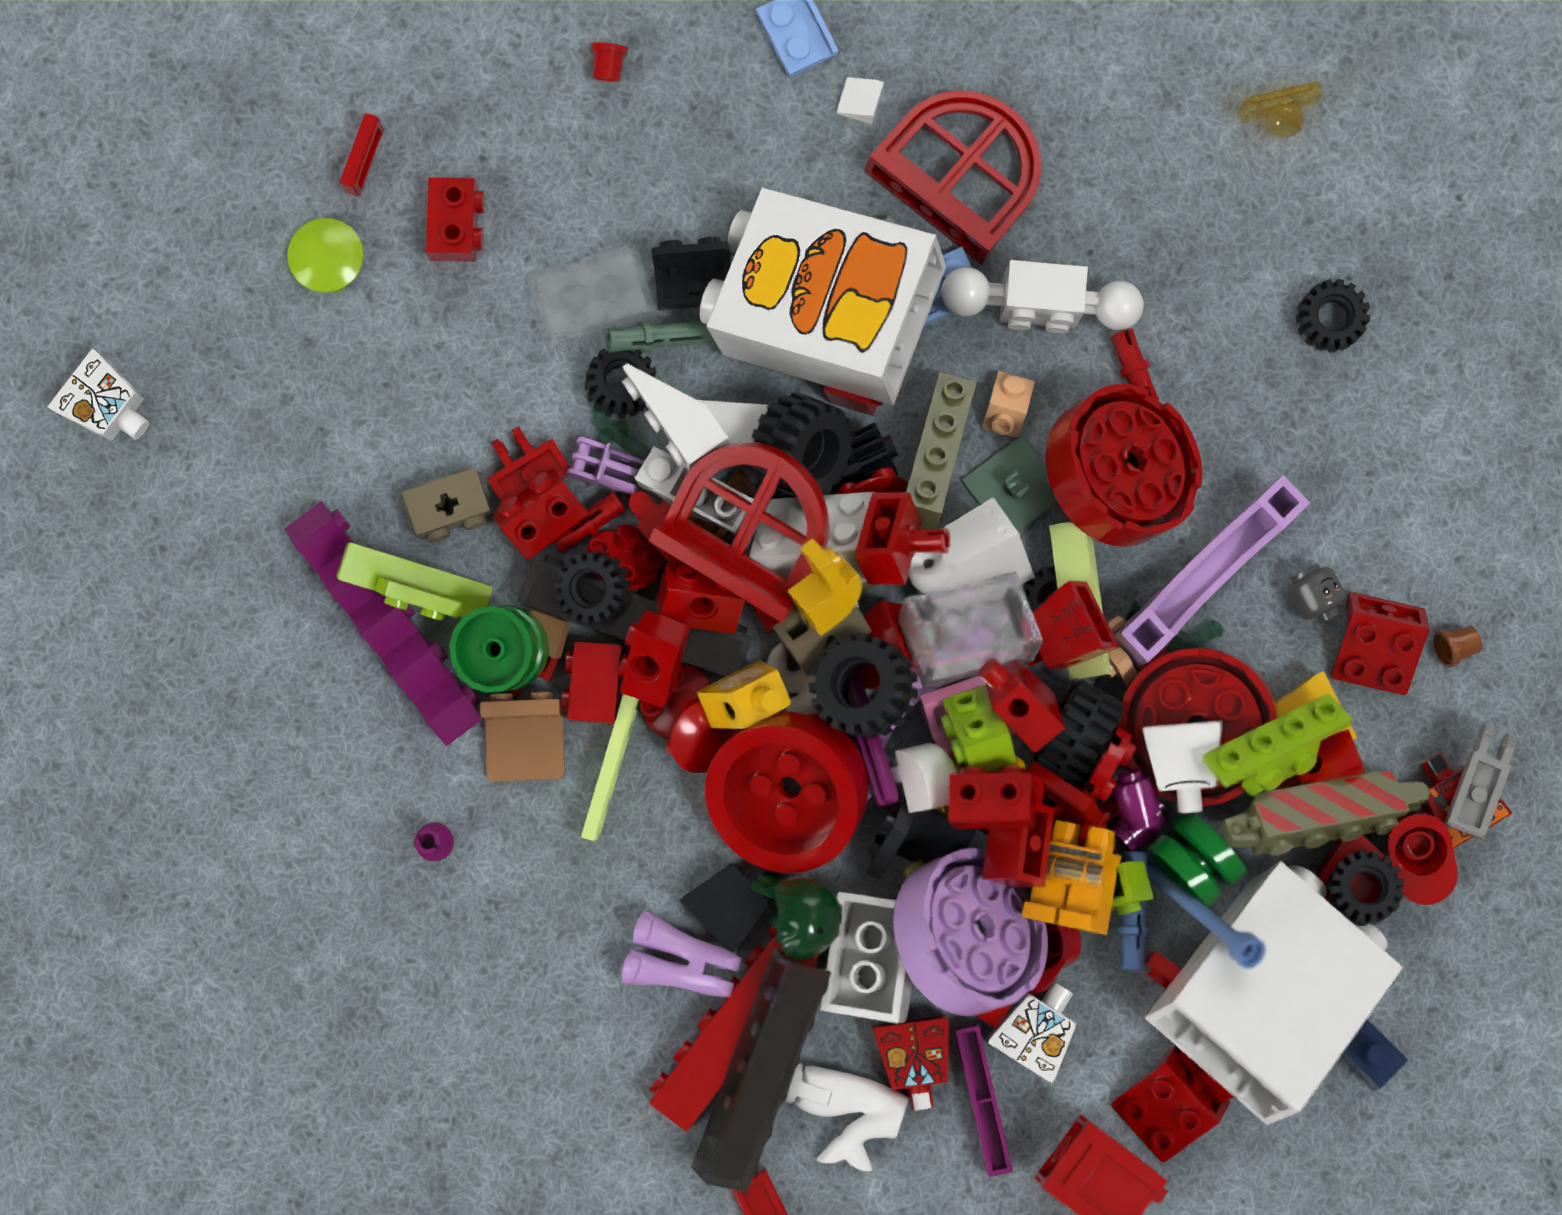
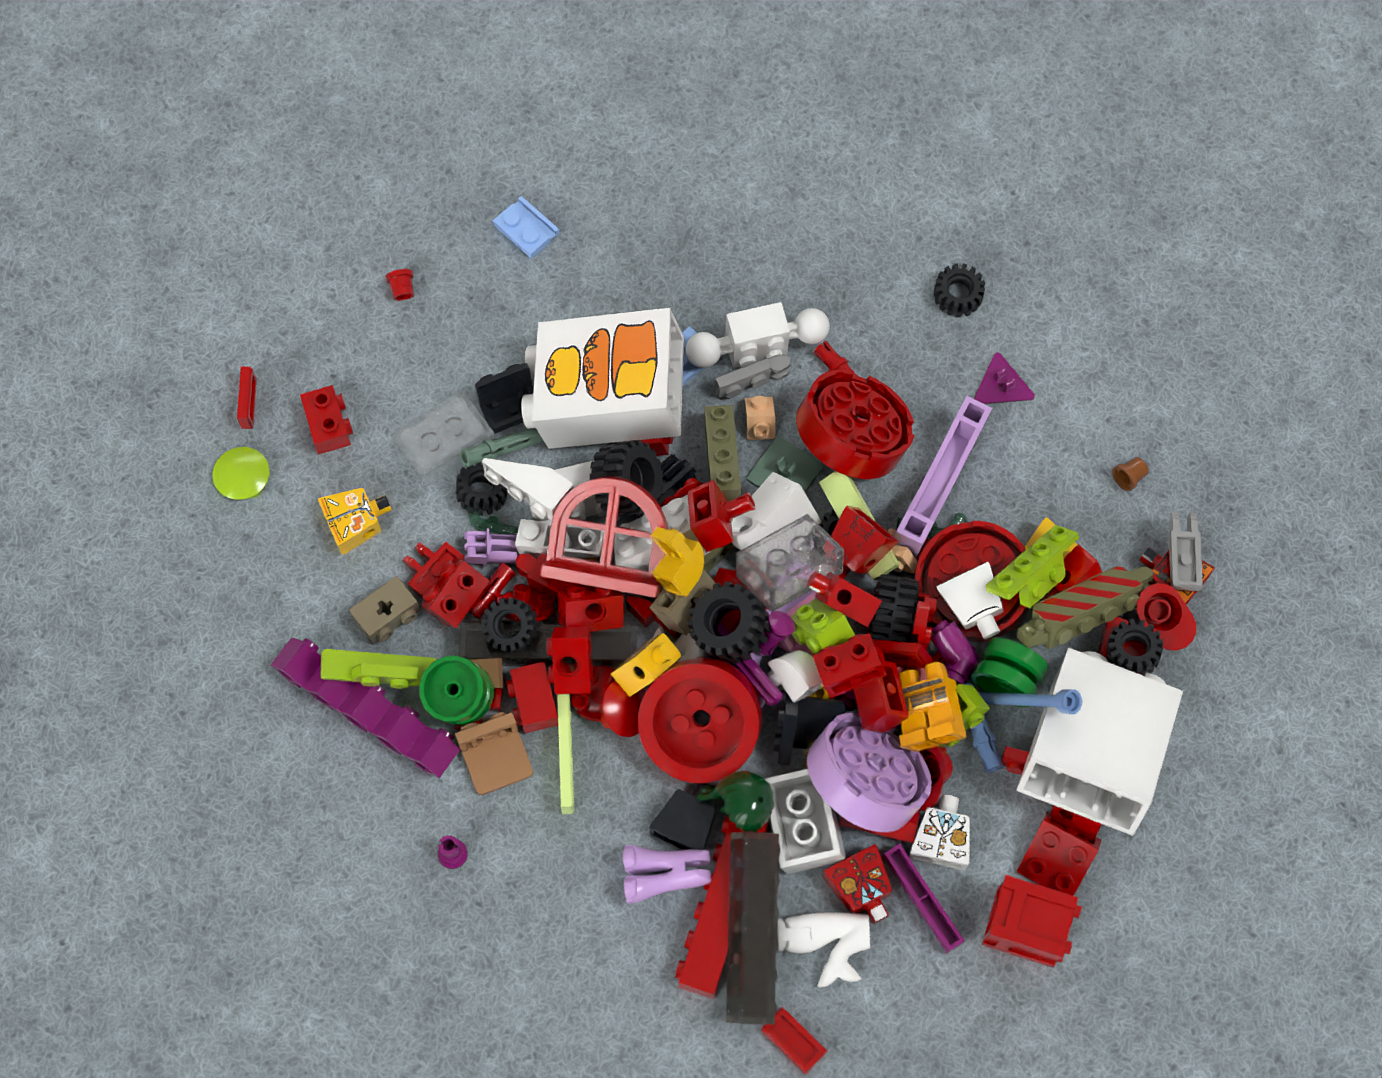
camera: 20 degrees left, 15 degrees down
(100, 400) = (105, 622): white torso -> none
(446, 365) = (353, 517): none -> yellow torso
(860, 99) = (585, 255): white slope -> none
(928, 711) = (780, 627): none -> magenta pin
(934, 199) = (643, 297): red window -> none
(1020, 345) = (752, 375): none -> light grey hinge
(1282, 108) = (872, 171): clear yellow tile -> none
(1317, 593) = (1021, 470): dark grey head -> none
(1339, 463) = (1002, 384): none -> magenta piece
(1373, 1056) = (1186, 766): dark blue torso -> none
(1380, 643) = (1078, 491): red bracket -> none

